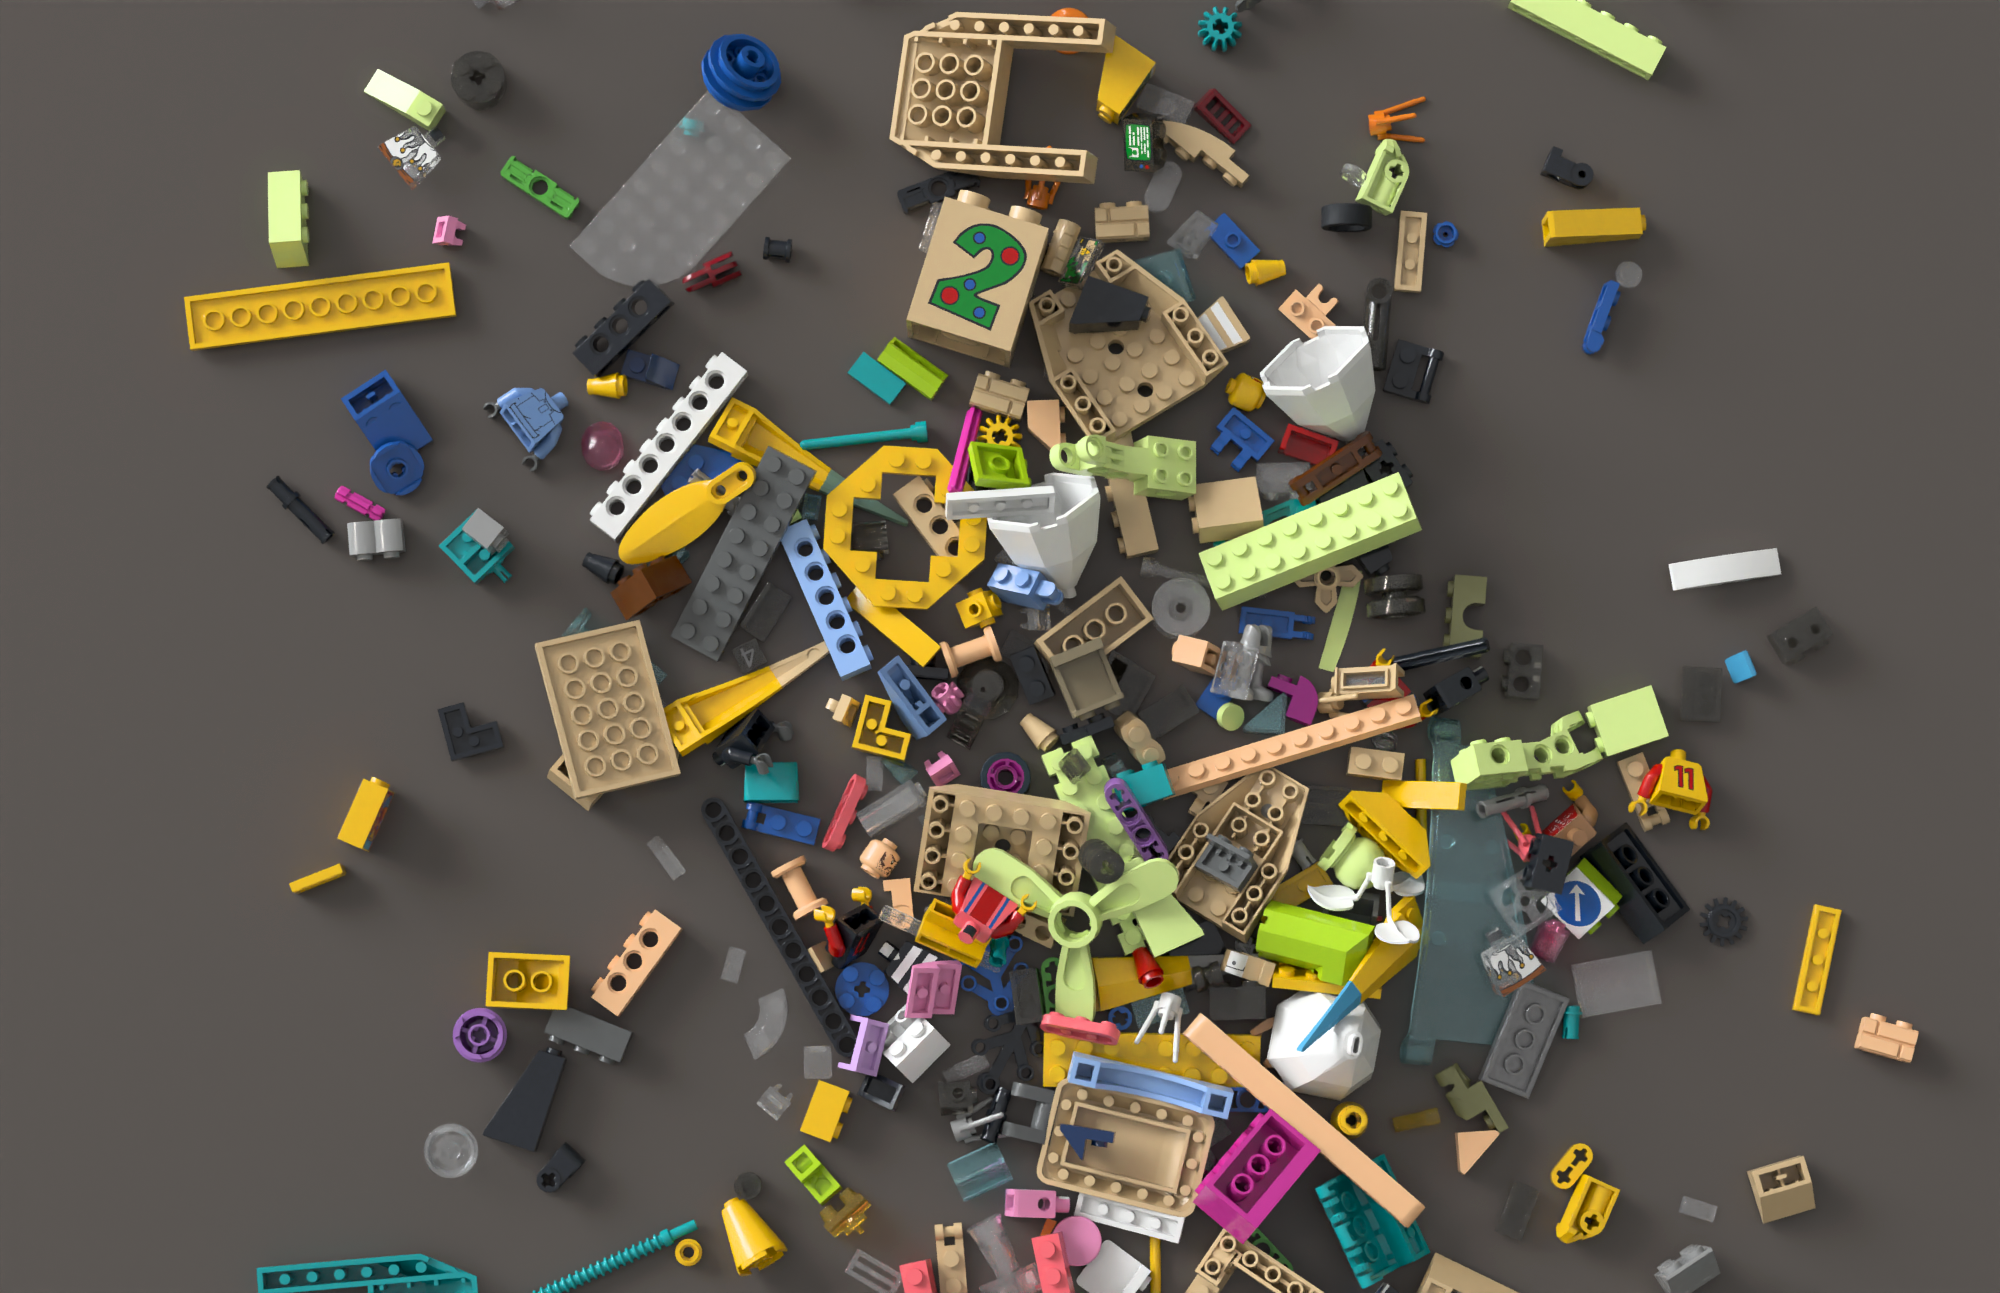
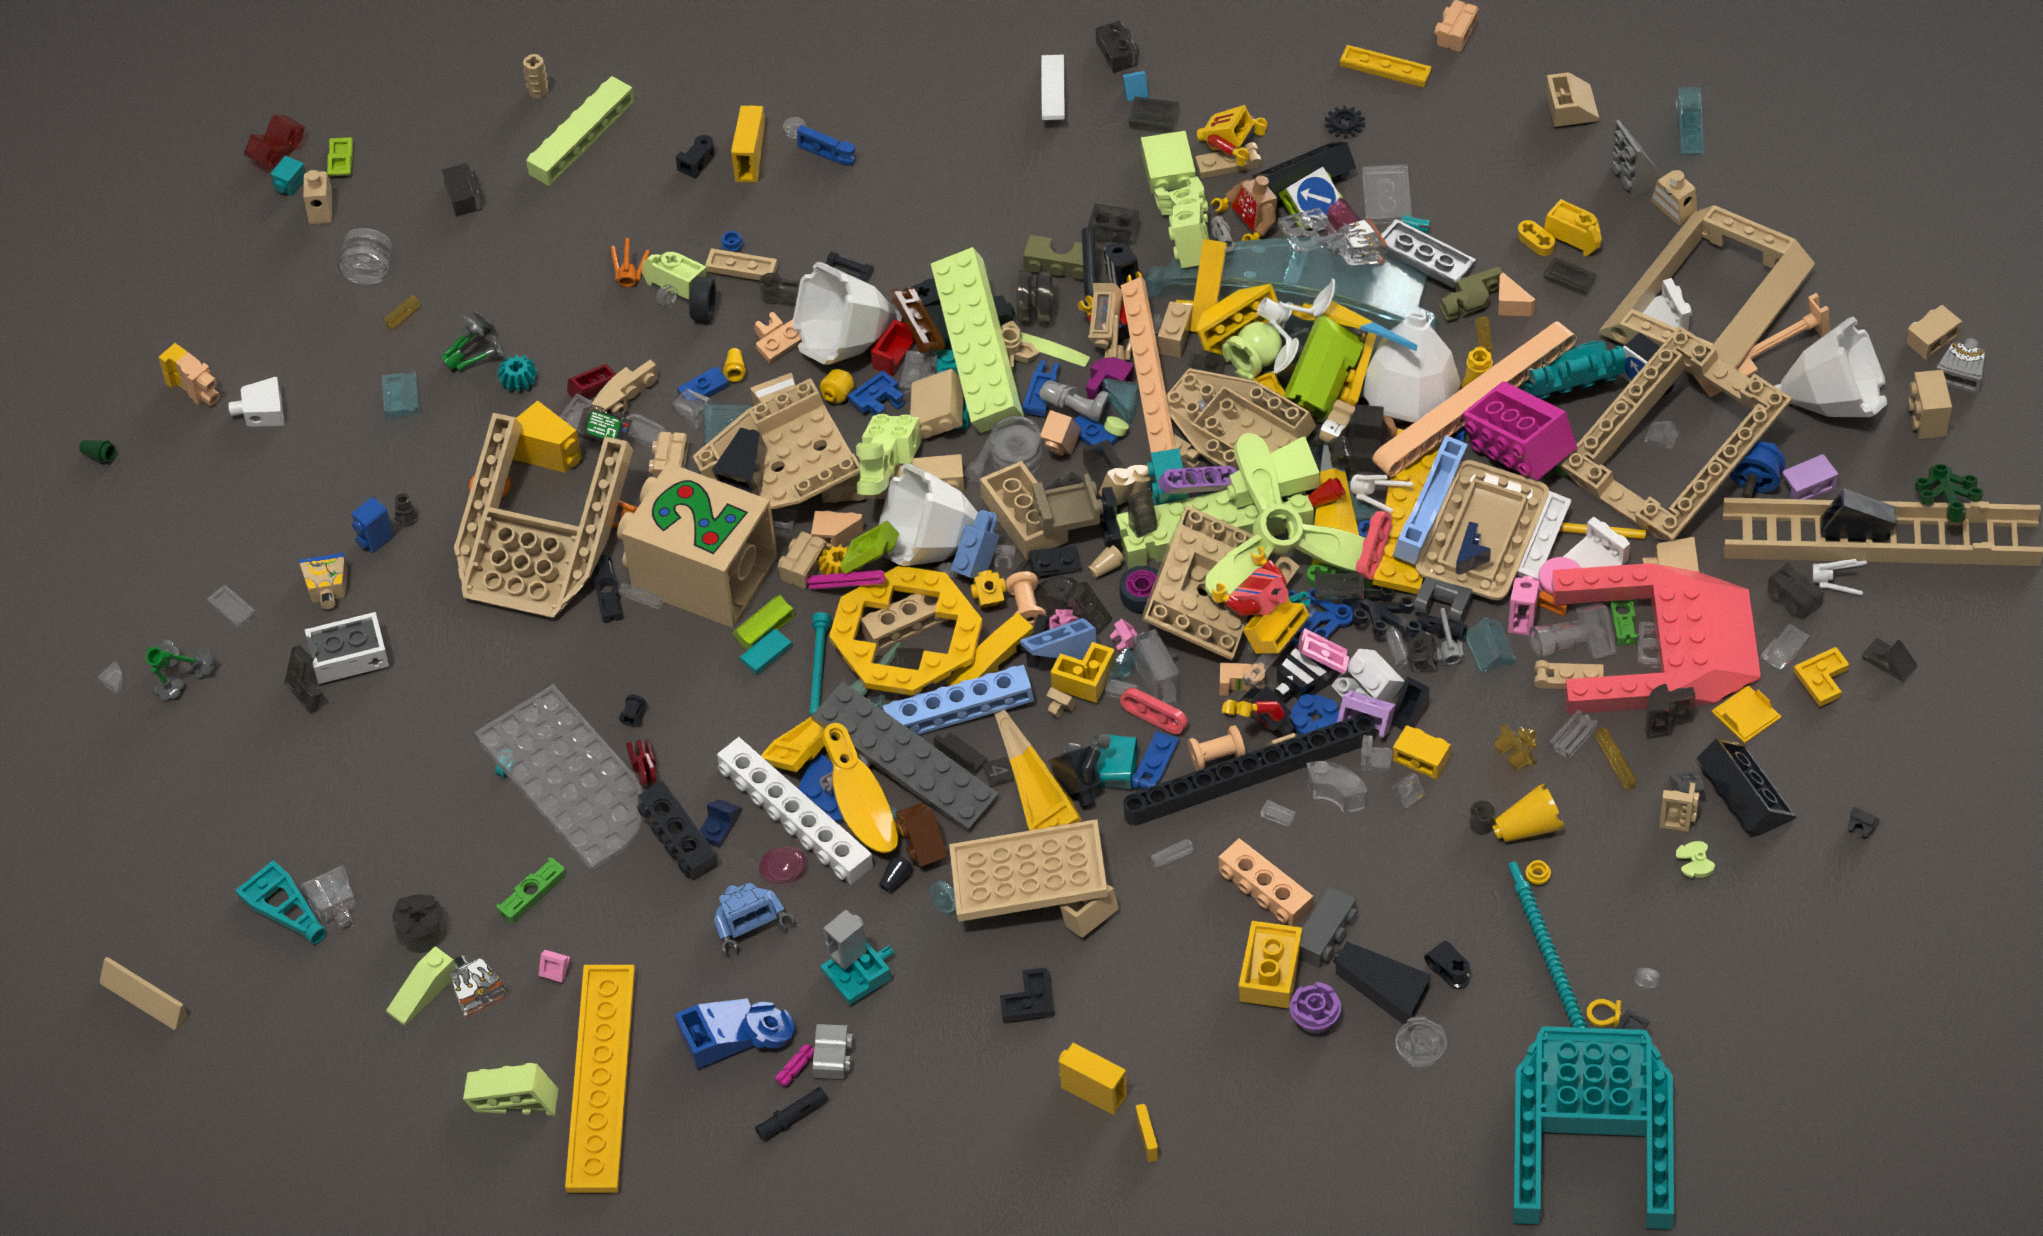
camera: 75 degrees left, 30 degrees down
(608, 386) = (728, 850): yellow cone -> none
(741, 72) = (466, 708): blue wheel -> none
(813, 1175) = (1481, 770): lime slope -> none
(879, 858) = (1199, 687): light nougat head -> none
(999, 502) = (899, 542): white plate -> none
(1101, 861) = (1230, 496): clear smoke piece -> none
(1227, 862) = (1243, 419): dark grey bracket -> none
(1234, 670) = (1078, 404): clear bracket -> none
(1524, 840) = (1262, 225): coral plant -> none
(1556, 851) = (1280, 202): black brick -> none
(1698, 1209) = (1582, 162): clear piece -> none

